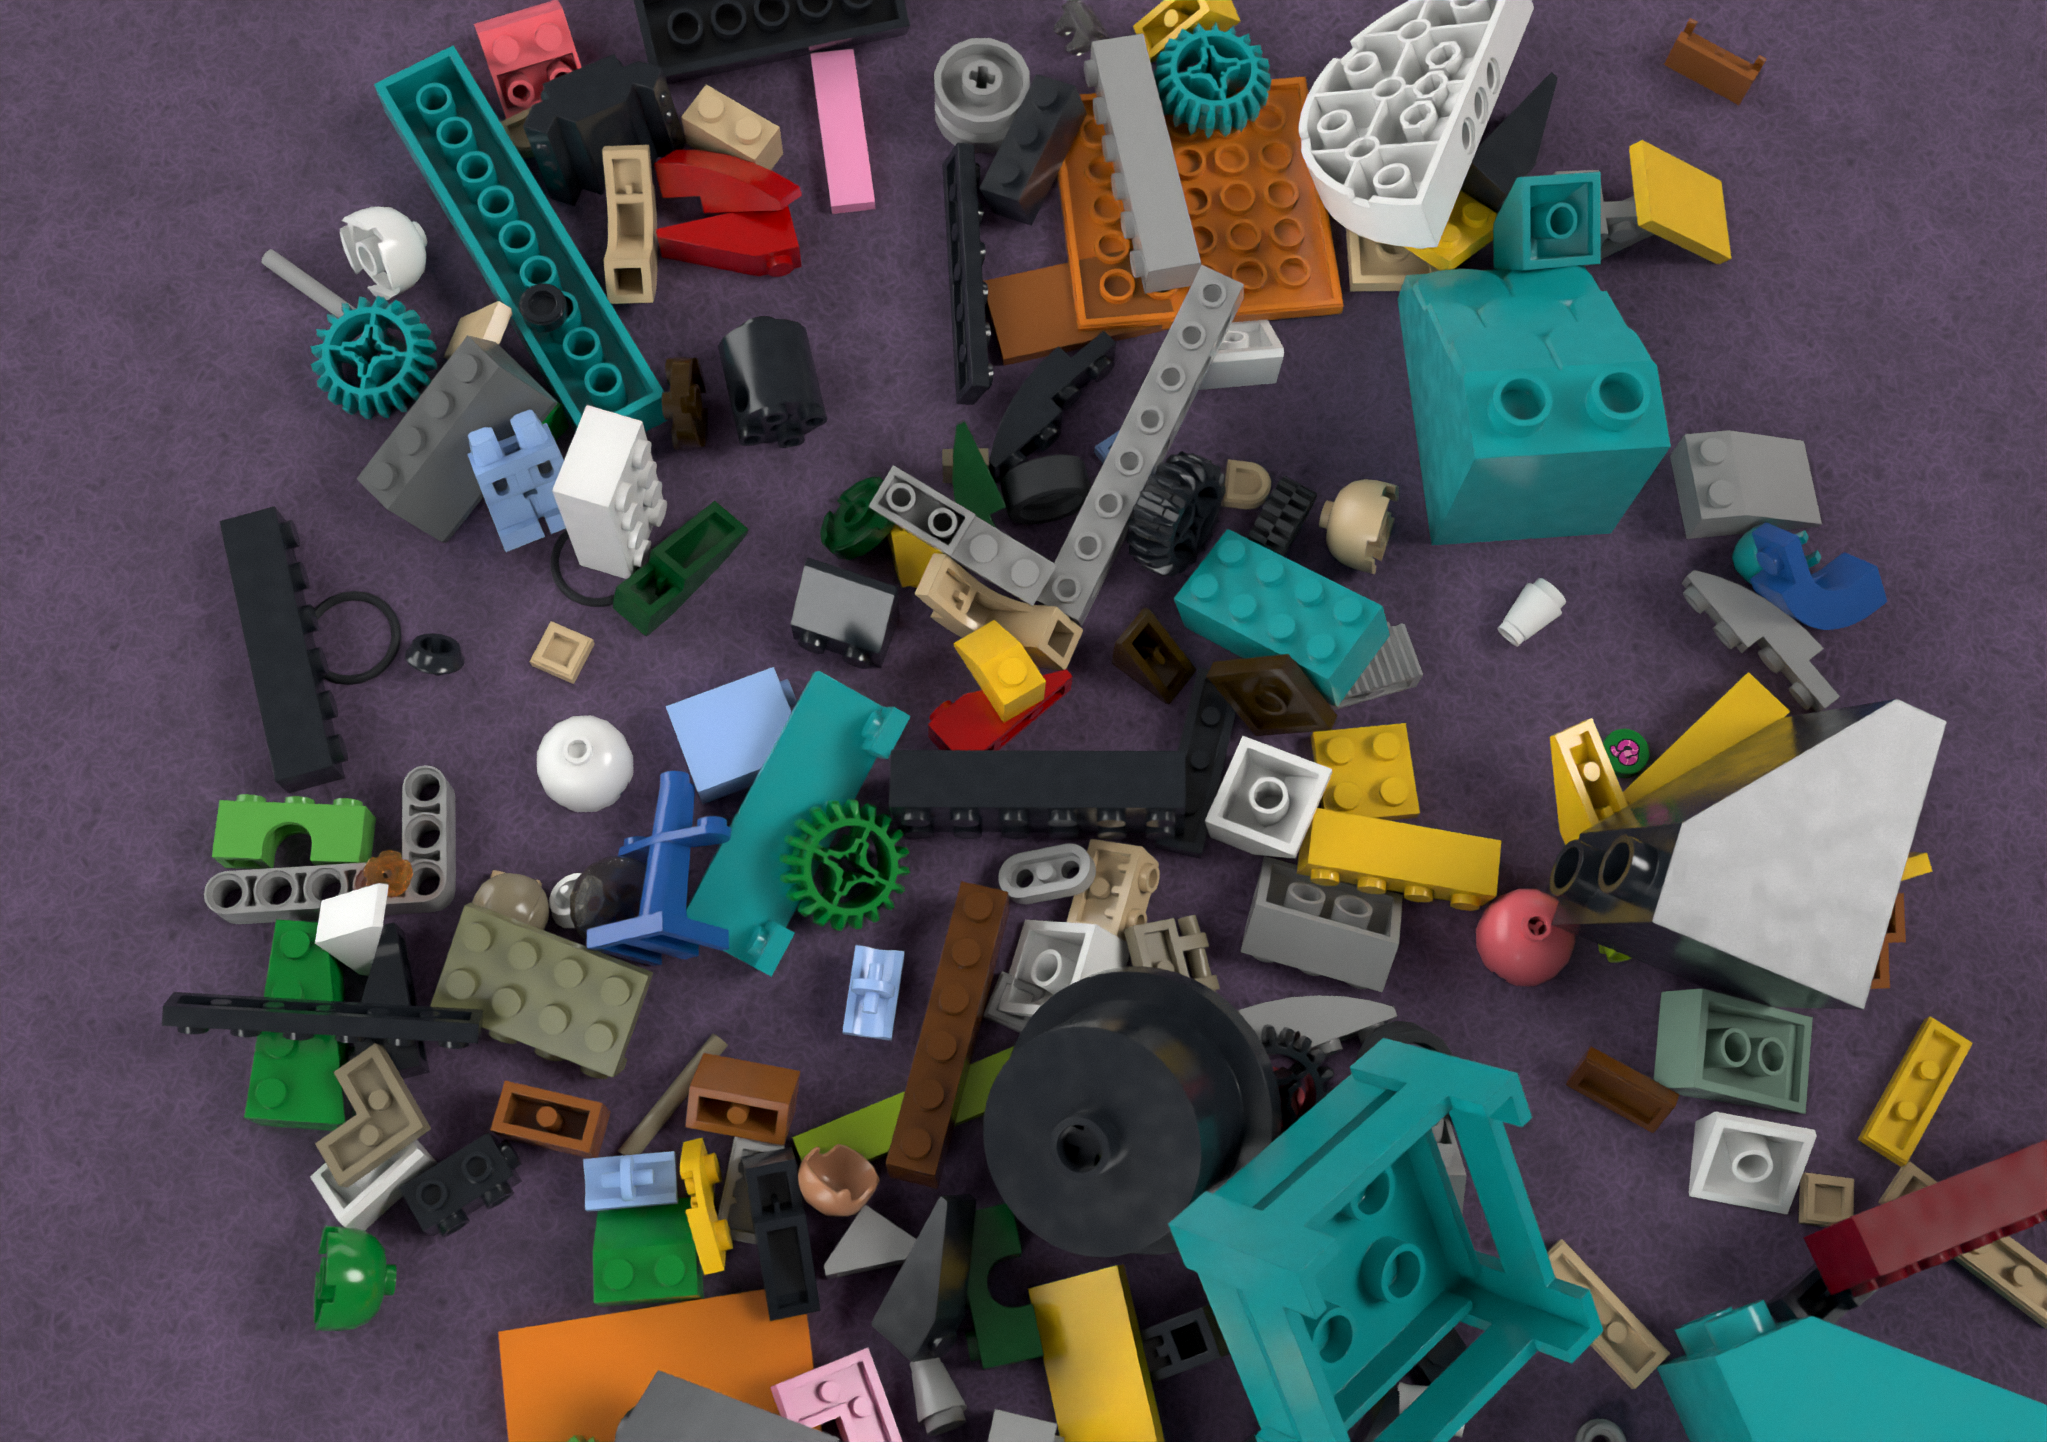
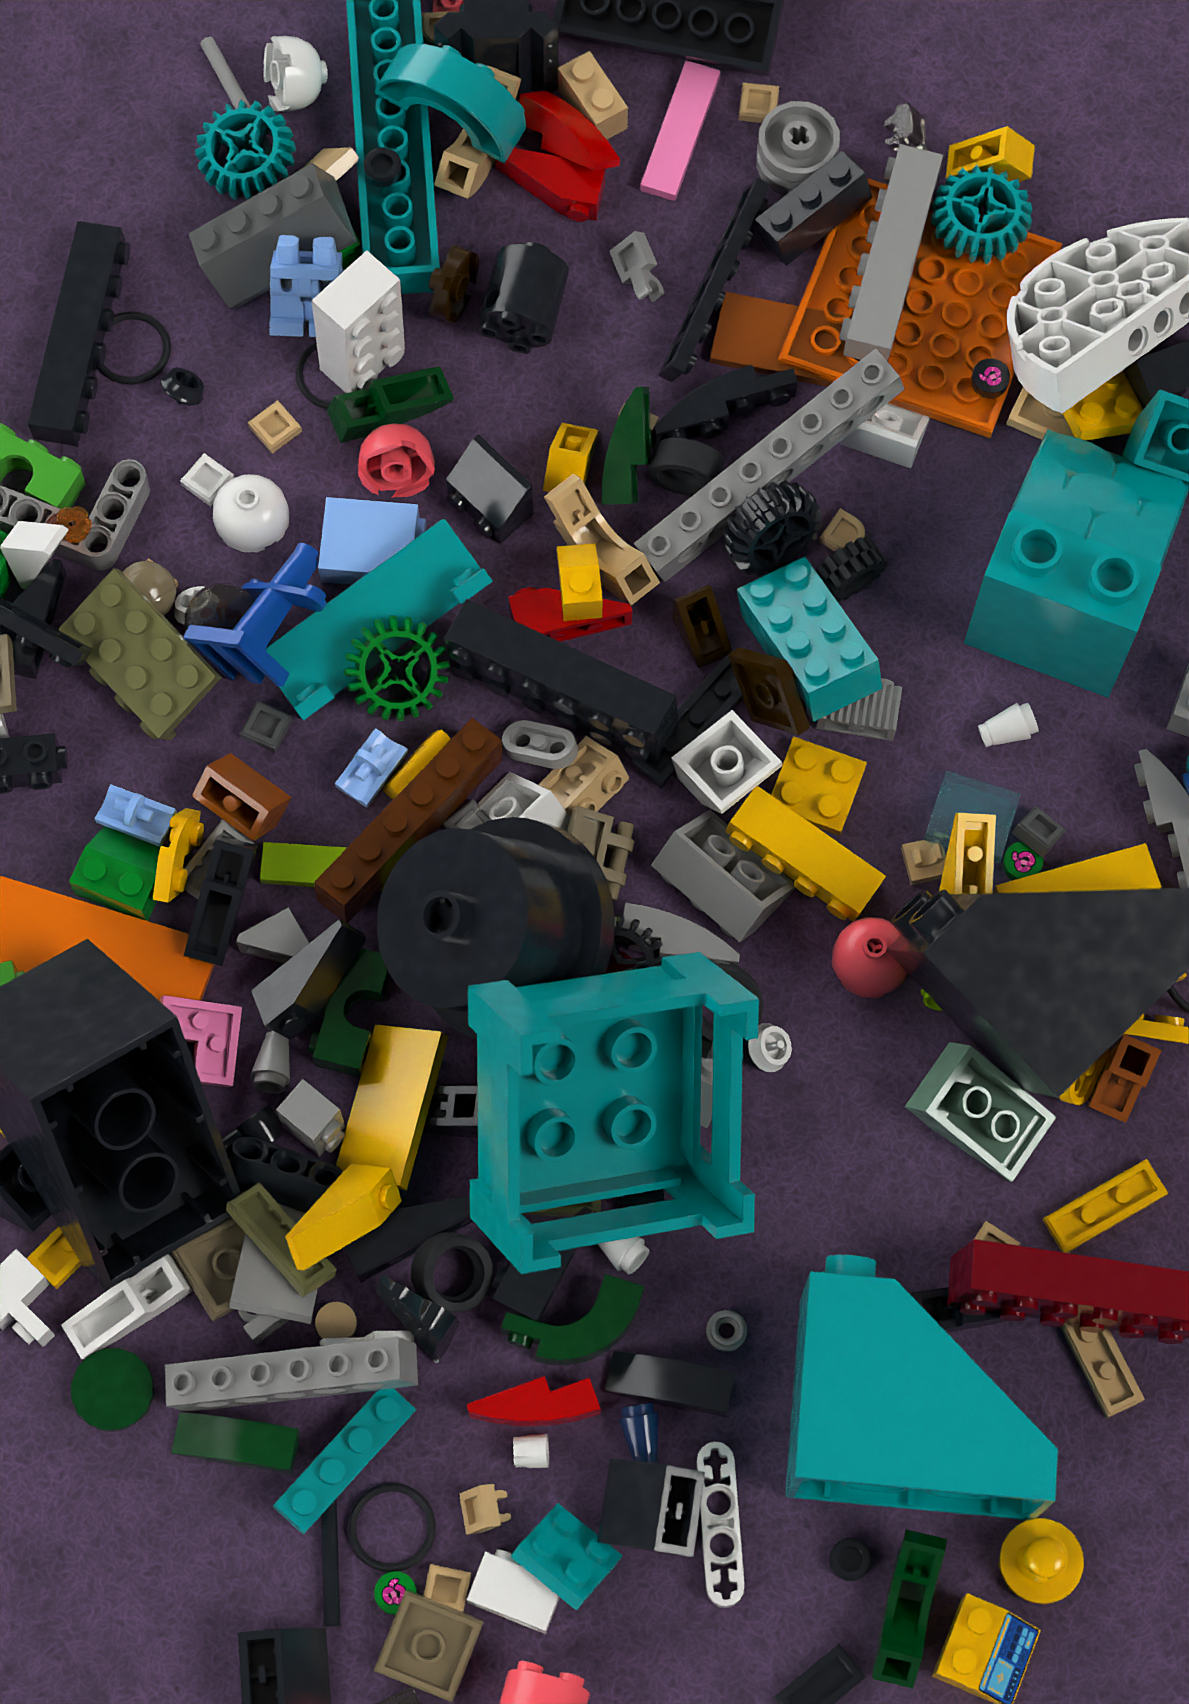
camera: 30 degrees right, 0 degrees up
(514, 748) = (206, 479): none -> white tile
(550, 1120) = (101, 747): dark orange brick -> none
(586, 182) = (458, 89): none -> teal brick
(669, 1100) = (188, 778): dark tan bar -> none
(721, 627) = (396, 460): none -> coral cylinder
(725, 1000) = (266, 726): none -> dark grey tile
(837, 1181) = (276, 882): nougat hair -> none
(854, 525) = (540, 428): dark green tile -> none
(869, 294) = (633, 262): none -> light grey plate
(910, 66) = (757, 101): none -> tan tile
(921, 962) = (416, 763): none -> yellow plate
(962, 536) = (599, 470): light grey slope -> none
(1313, 249) = (990, 378): none -> black tile
(1359, 523) = (911, 600): tan cylinder -> none
(1522, 801) = (923, 861): none -> tan tile
(1531, 716) = (972, 796): none -> clear light blue tile
(1622, 1089) = (880, 1096): reddish brown tile -> none
(1624, 712) = (1039, 831): none -> dark grey tile
(1625, 1340) = (777, 1244): tan tile -> none
(1748, 1161) = (945, 1190): white slope -> none

